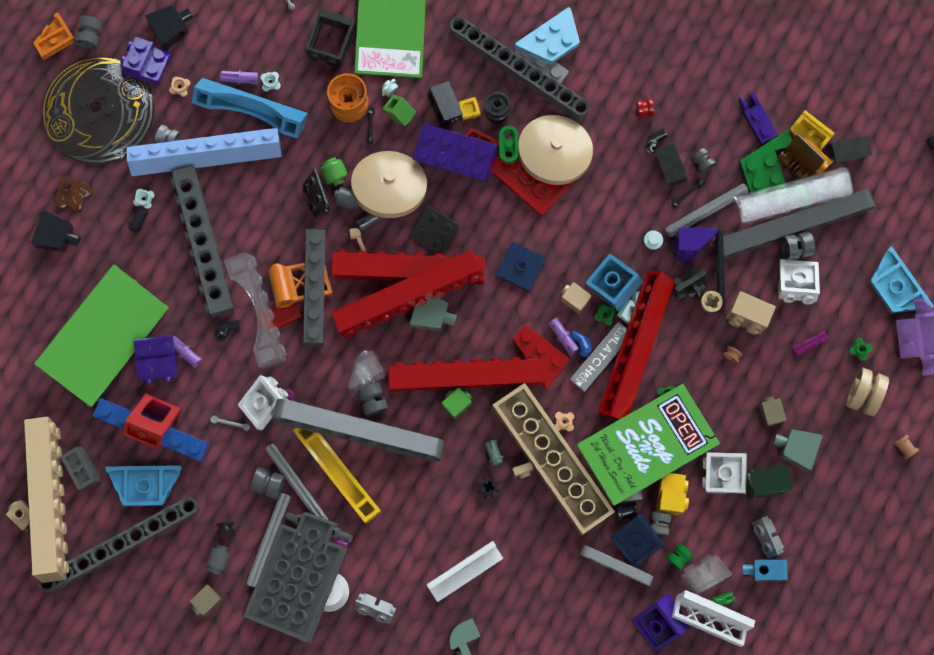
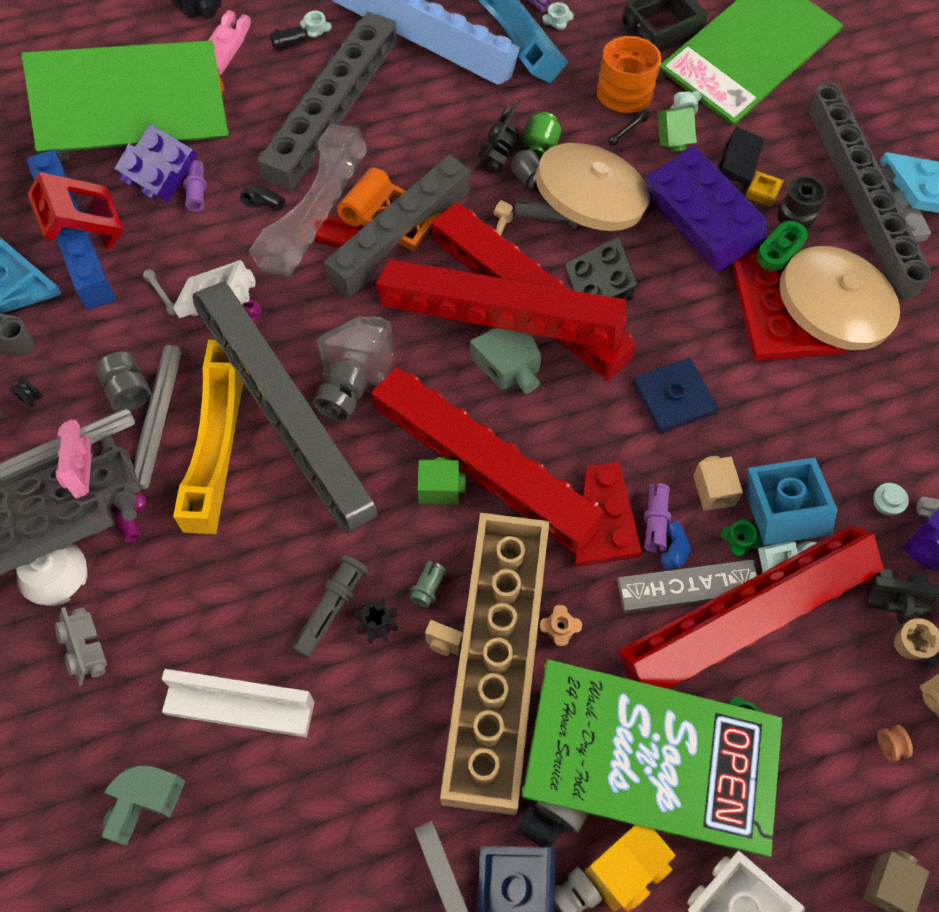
camera: 45 degrees right, 15 degrees down
(104, 250) = (227, 39): none -> bright pink hinge
(293, 536) = (74, 459): none -> bright pink hinge
(460, 490) = (337, 592): none -> dark grey pin

